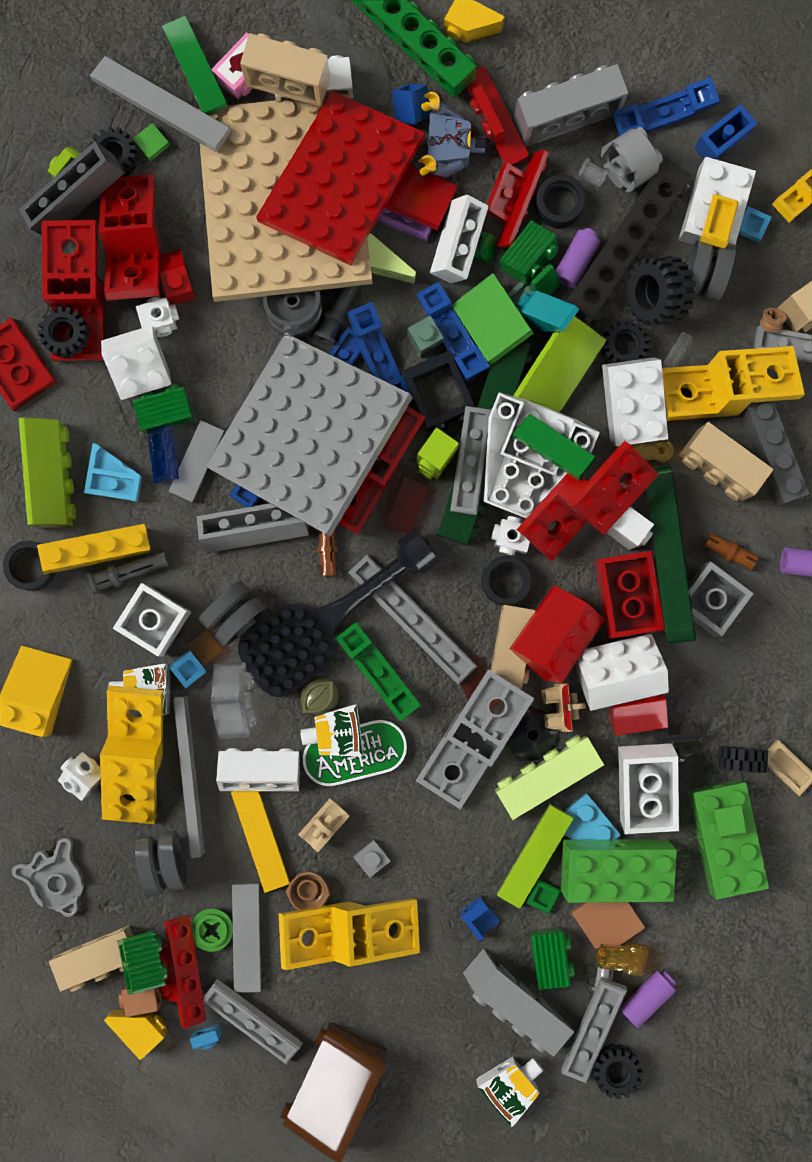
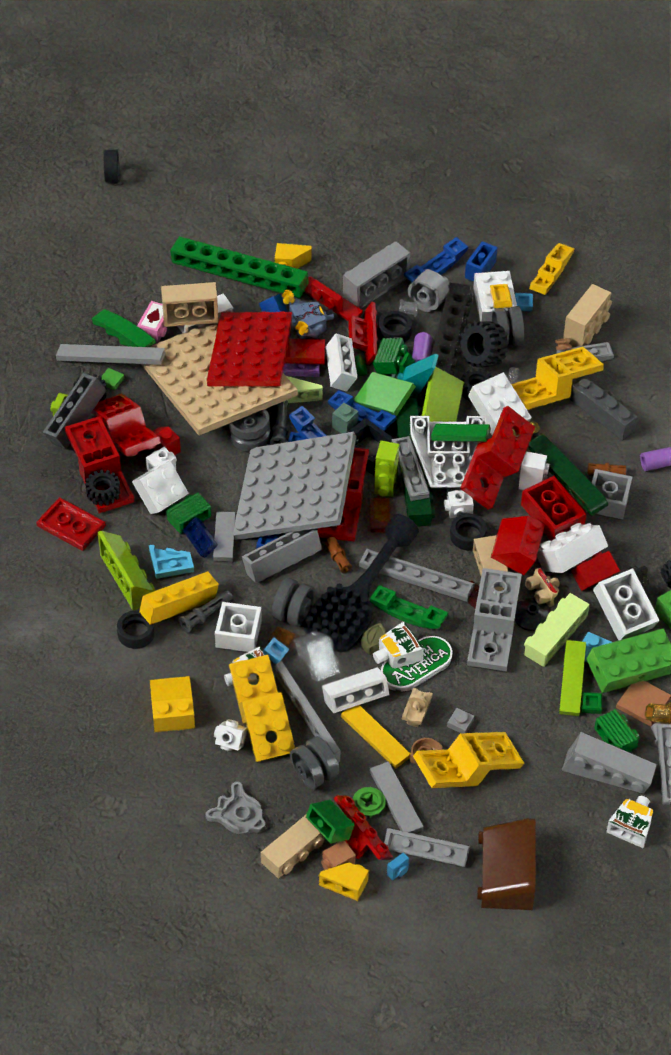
camera: 20 degrees left, 35 degrees down
(479, 917) = (553, 730): blue panel -> none
(725, 462) = (574, 419): tan brick -> none

